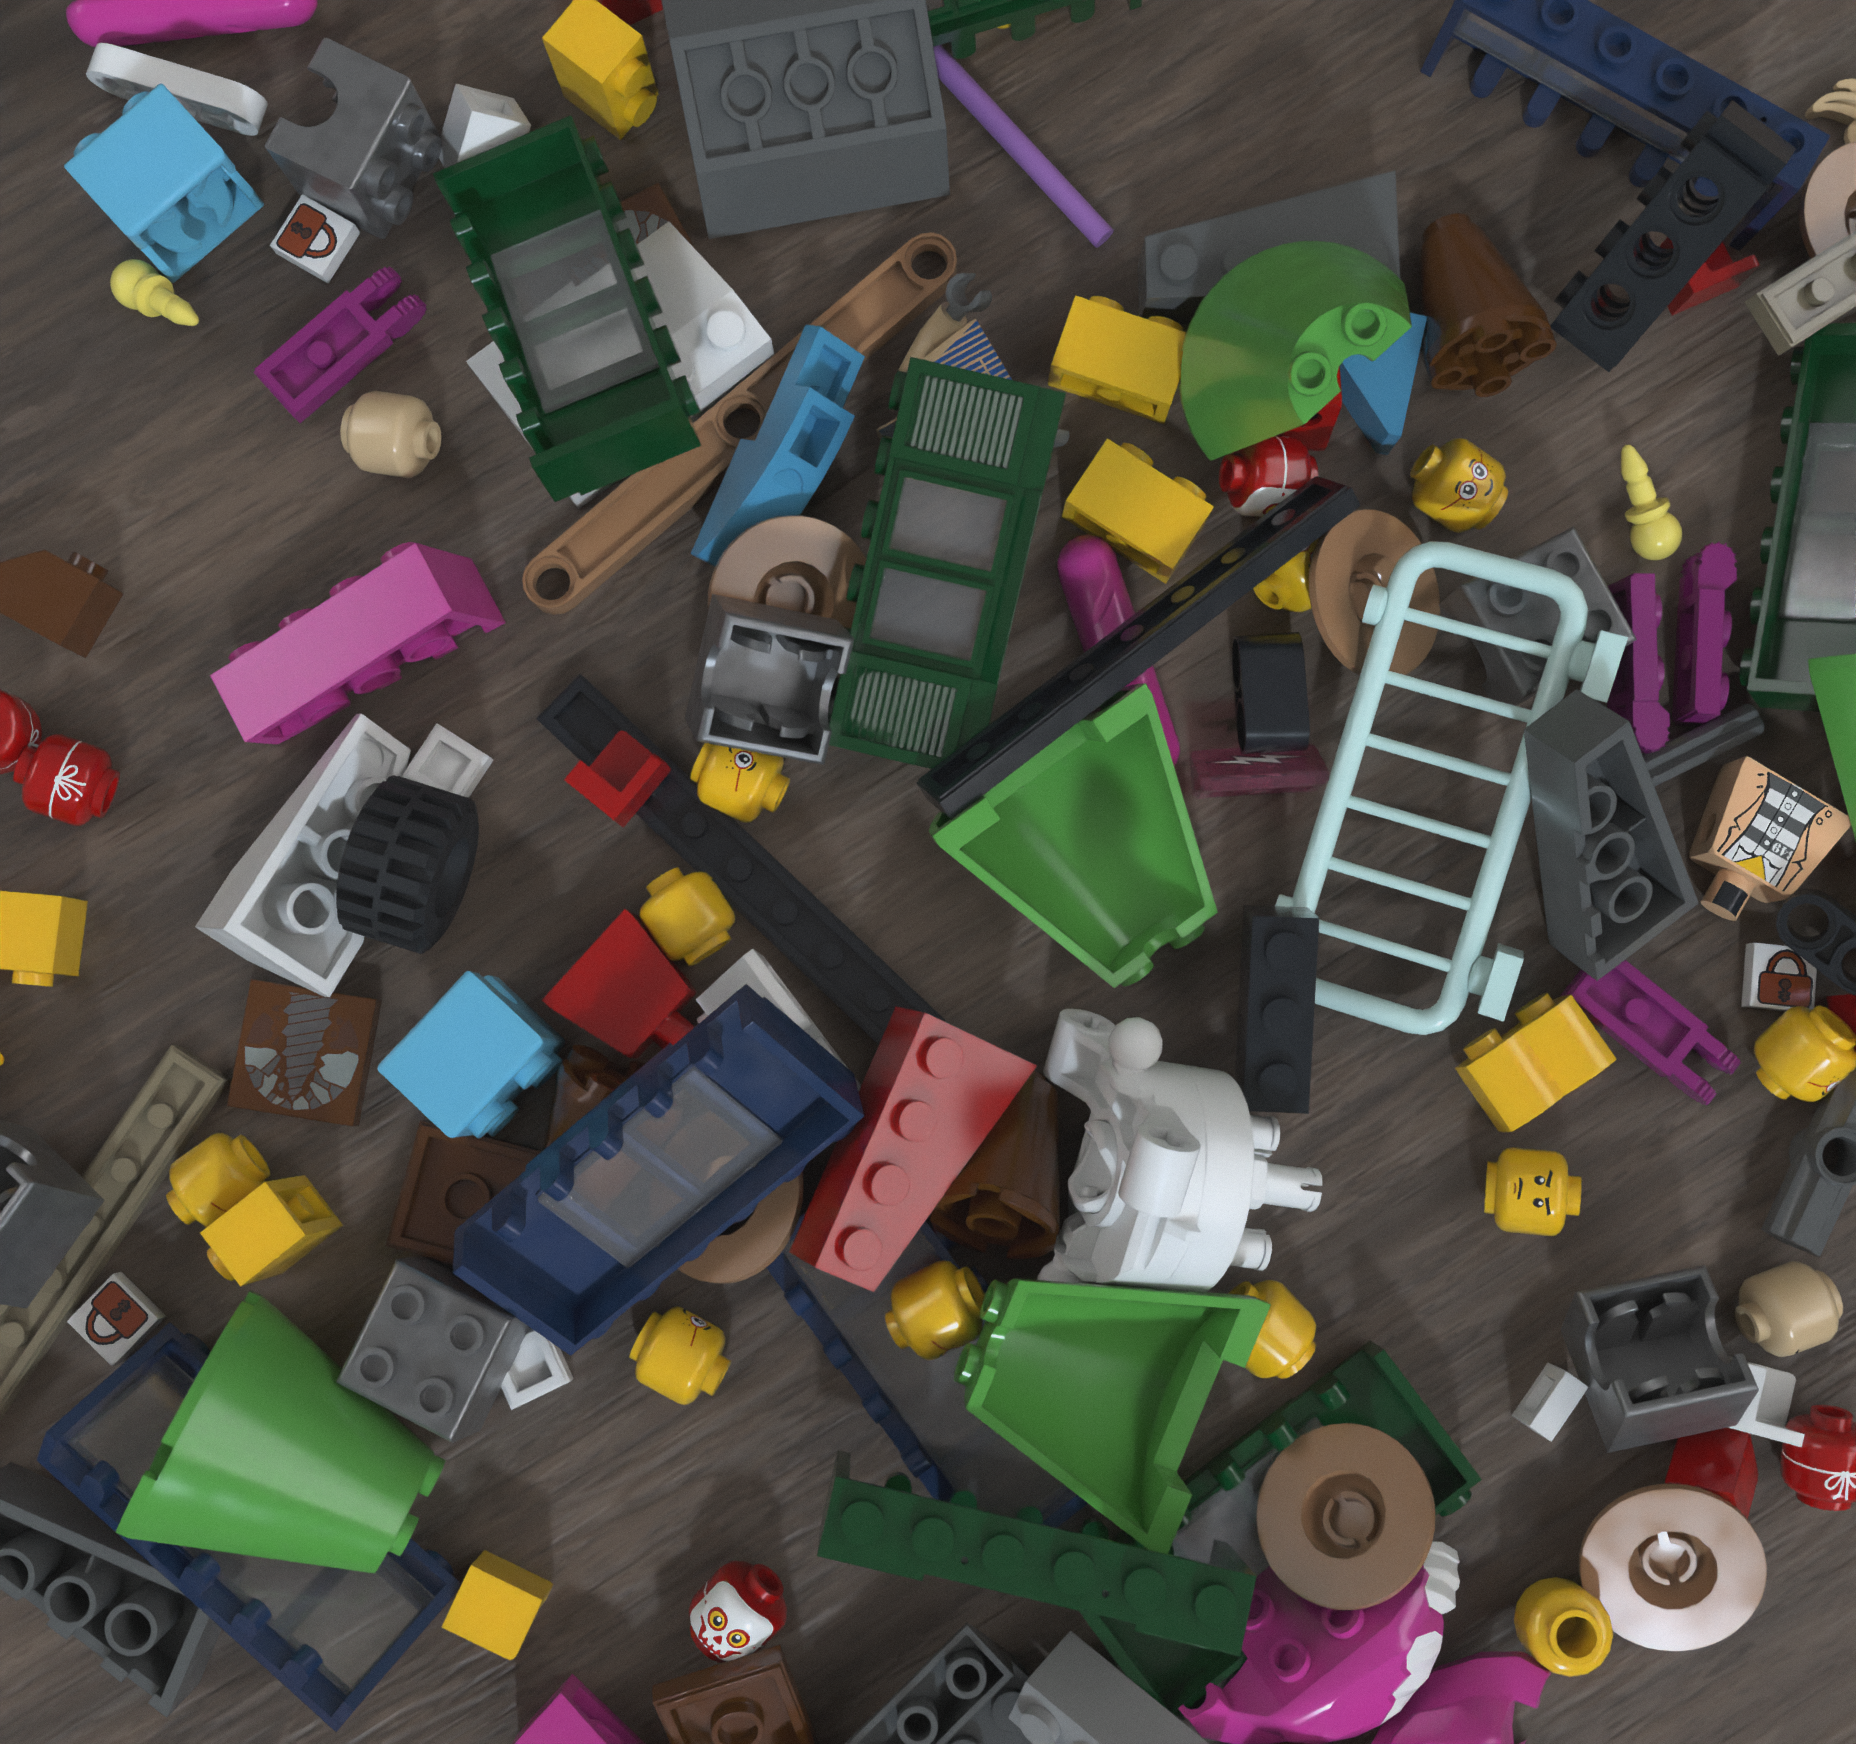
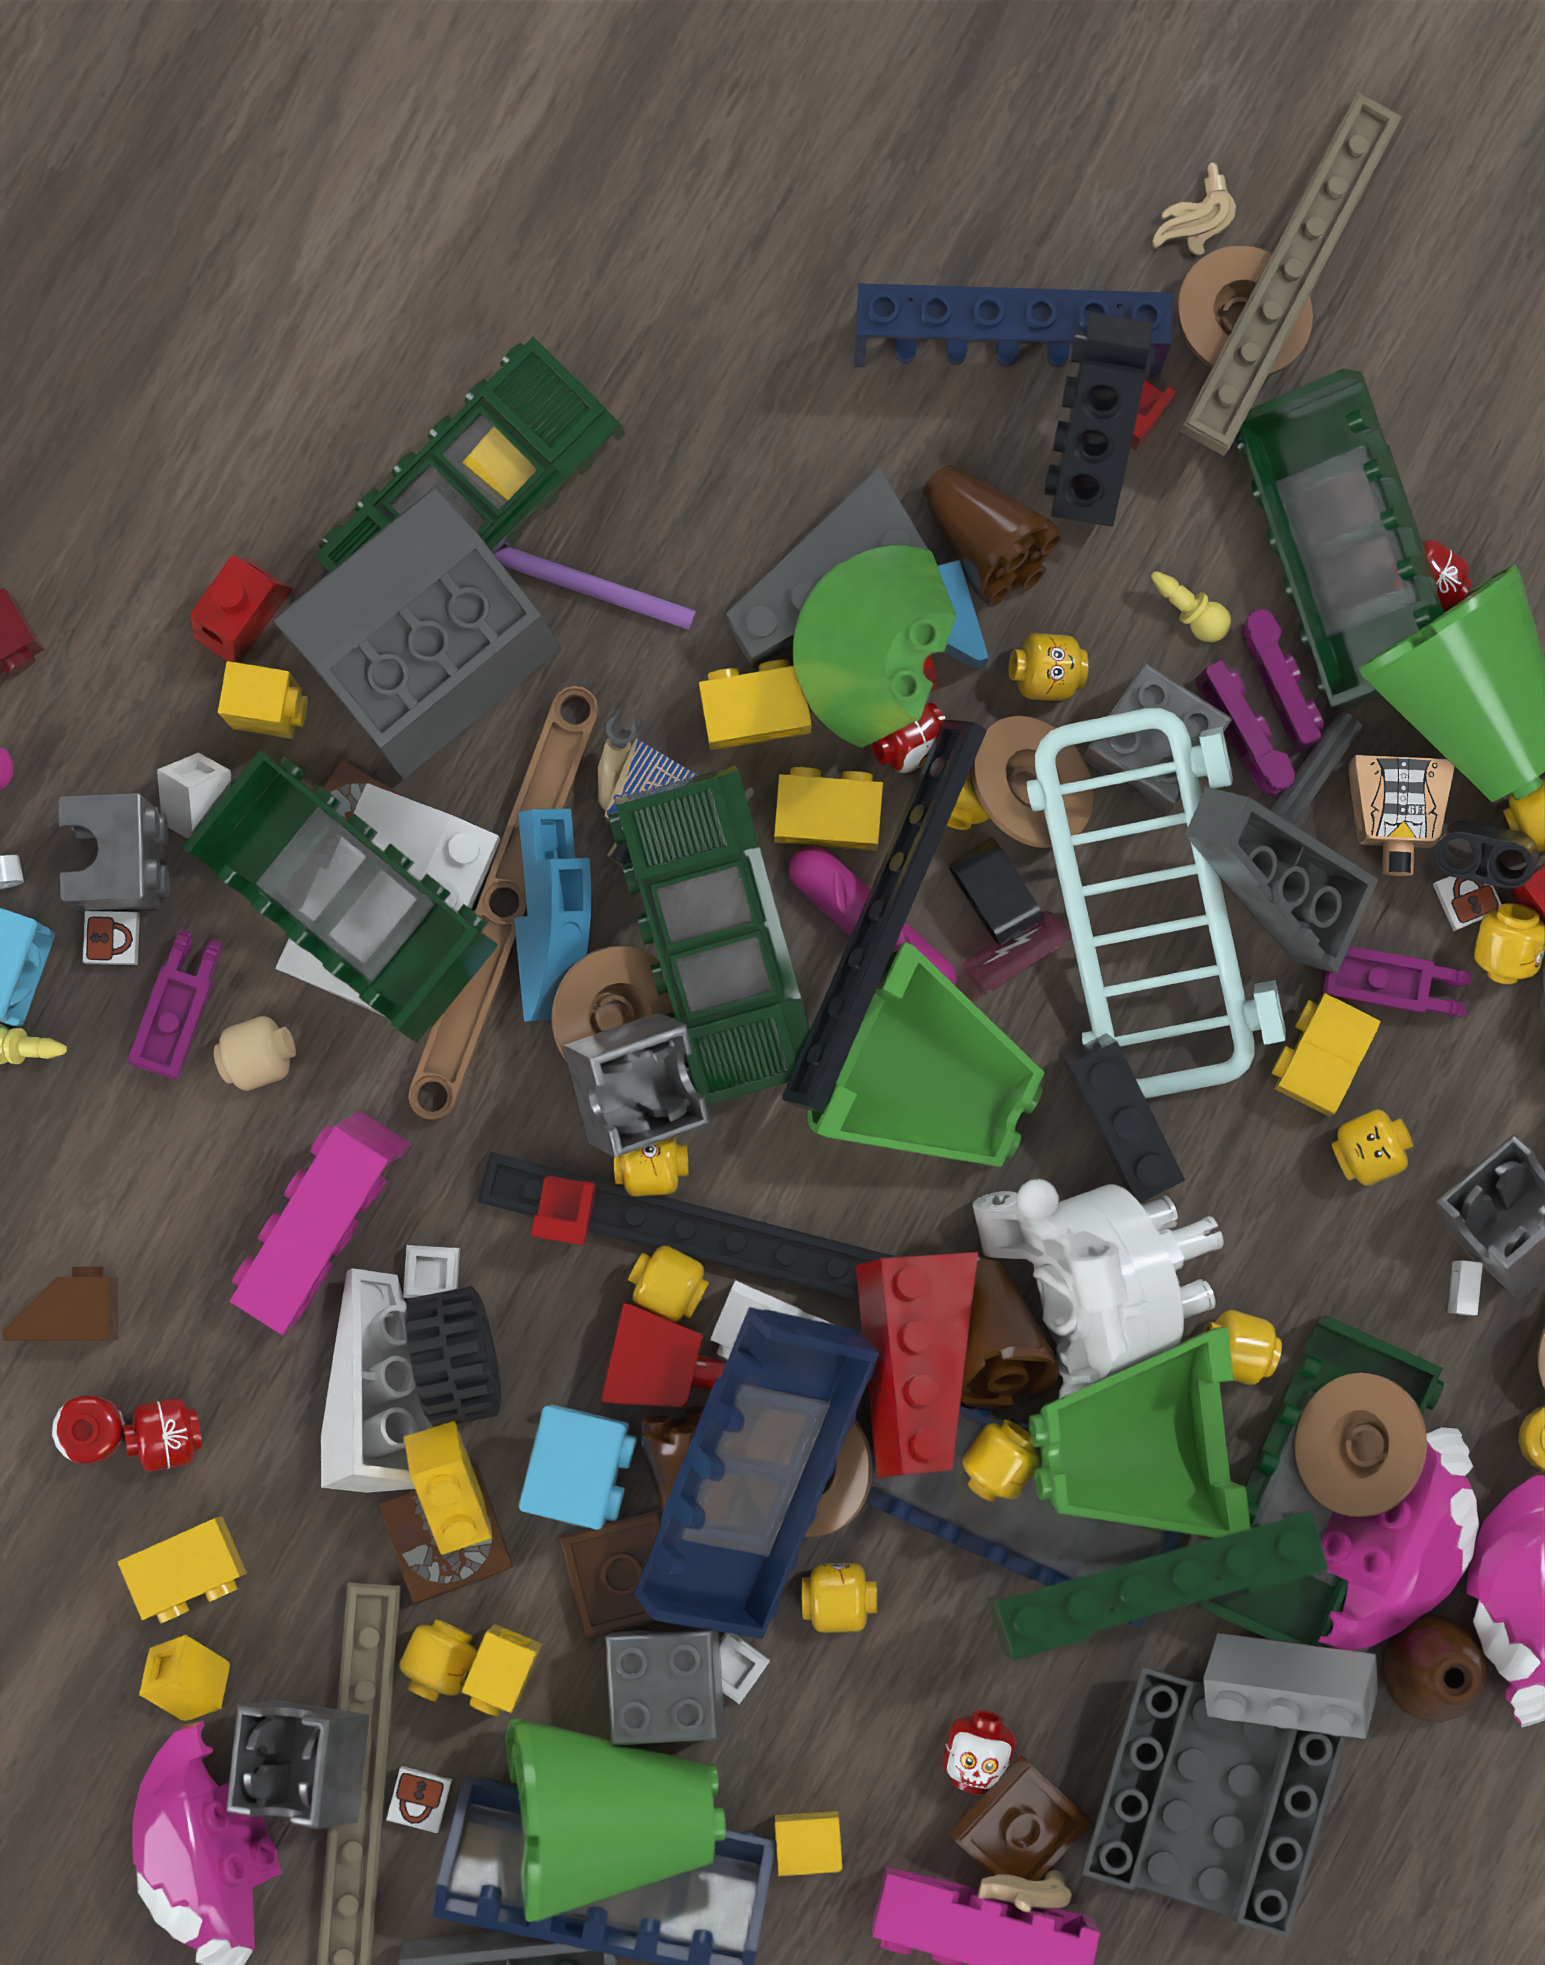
camera: 30 degrees left, 0 degrees up
(318, 1000) = (447, 1487): none -> yellow brick

